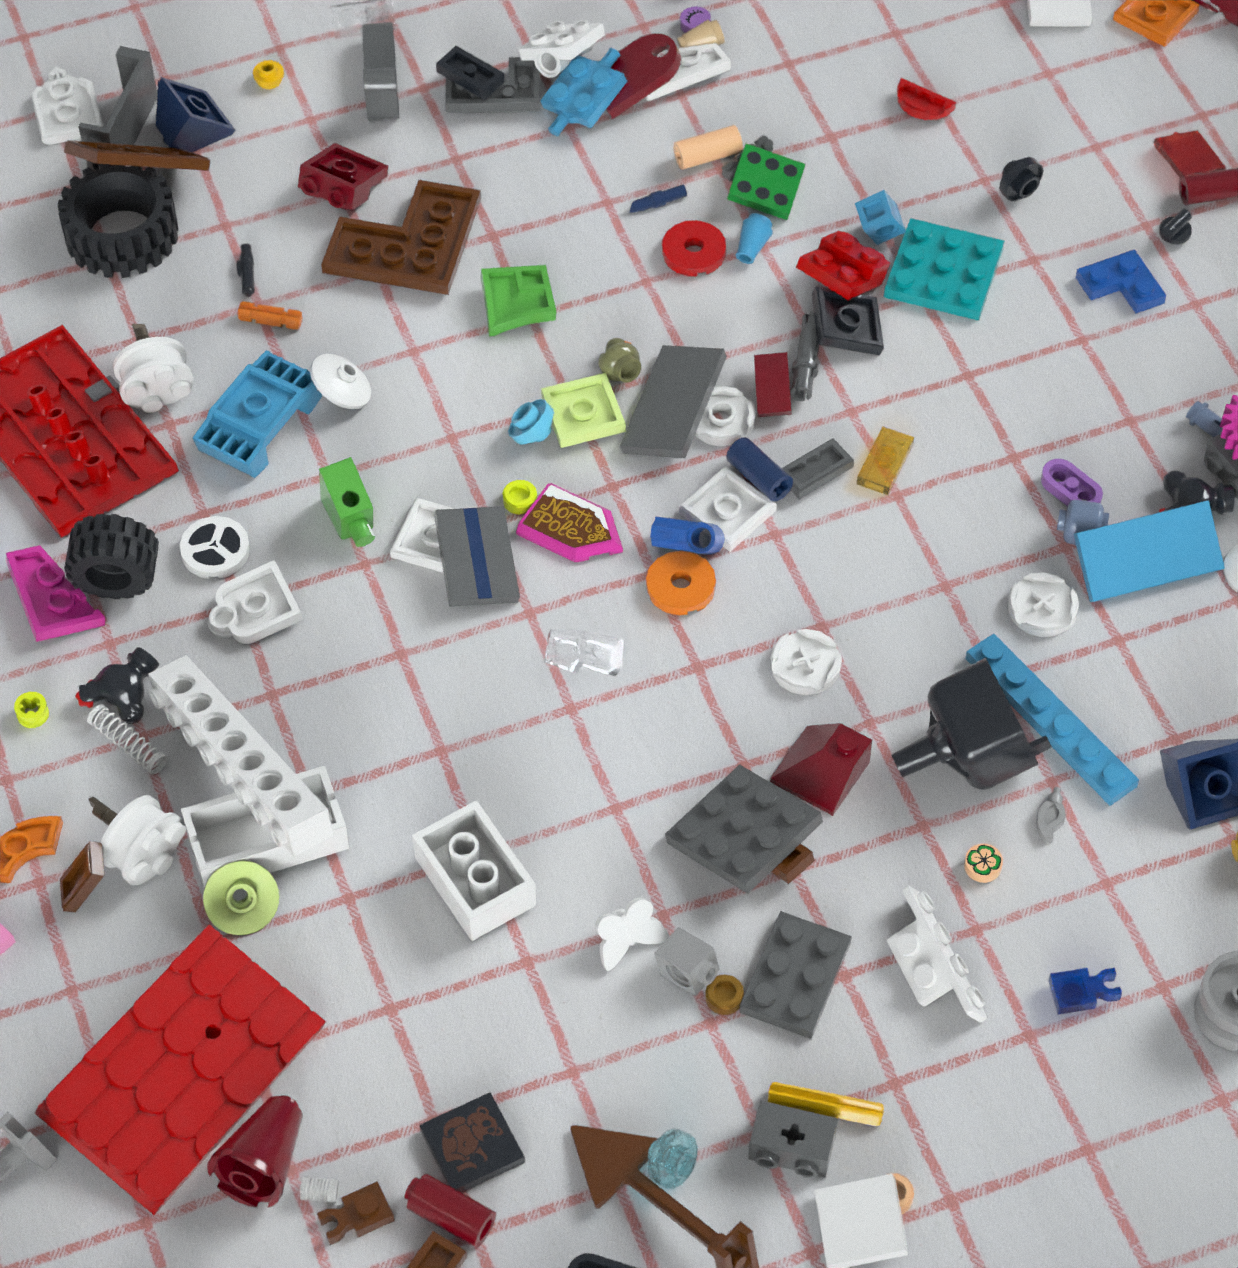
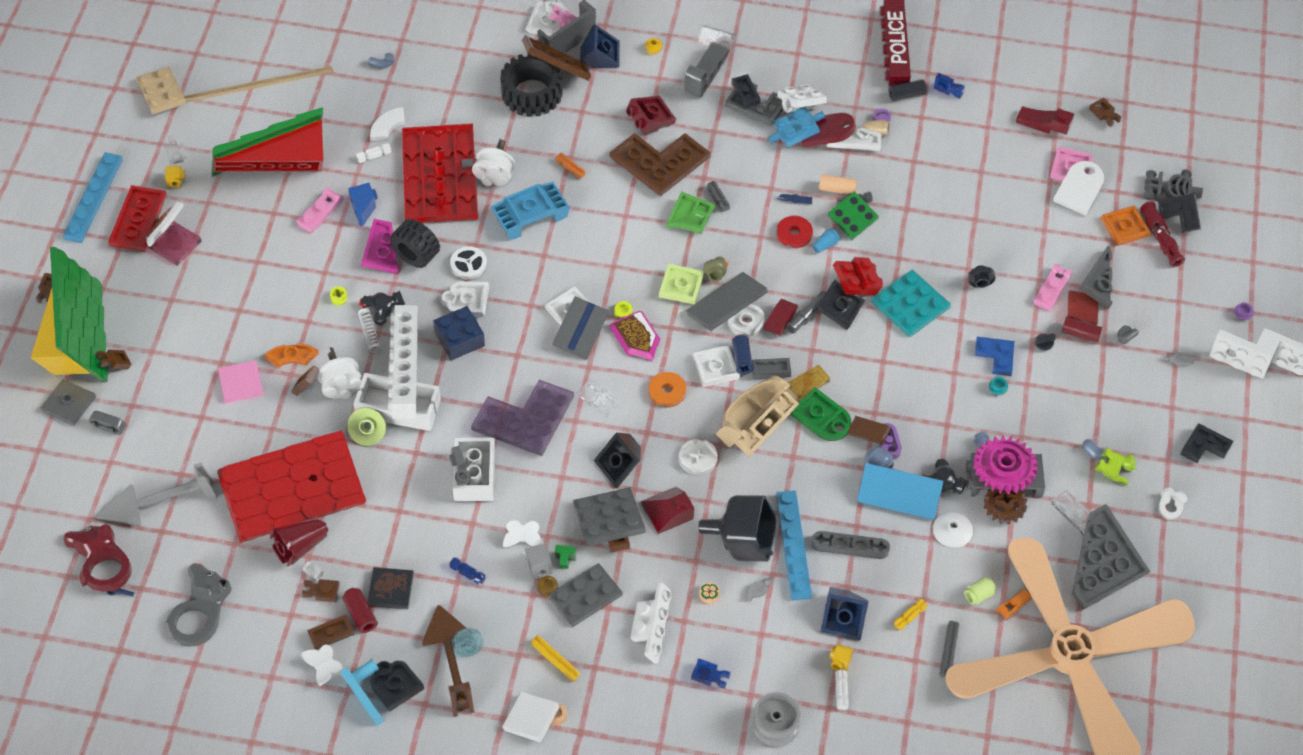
camera: 30 degrees right, 0 degrees up
(99, 94) = (562, 17): none -> bright pink plate
(245, 269) = (575, 138): black piece -> none
(284, 665) = (459, 333): none -> dark blue brick
(340, 381) = (577, 213): white dish -> none
(347, 501) = (538, 271): bright green torso -> none
(455, 868) = (457, 459): none -> dark grey plate
(503, 760) = (526, 427): none -> clear purple plate
(531, 422) = (651, 277): medium azure plate -> none
(538, 251) = (718, 196): none -> dark grey axle
(578, 1043) = (467, 571): none -> clear blue axle
(685, 535) = (684, 368): blue piece -> none
(692, 729) = (619, 457): none -> black slope
(720, 928) = (565, 554): none -> green tile
(778, 1125) = (527, 664): dark grey brick -> none
(854, 562) = (756, 414): none -> tan piece
(880, 217) = (894, 261): dark azure brick -> none
(923, 102) = (964, 214): red plate -> none
(944, 501) = (821, 416): none -> green tile
(1034, 484) = (869, 430): none -> reddish brown tile
(1042, 604) = (832, 490): white tile -> none
(1125, 147) = (1052, 287): none -> bright pink plate
(1131, 668) = (851, 541): none -> dark grey beam
(1161, 325) = (998, 386): none -> teal plate
(1182, 103) = (1099, 279): none -> dark grey wing

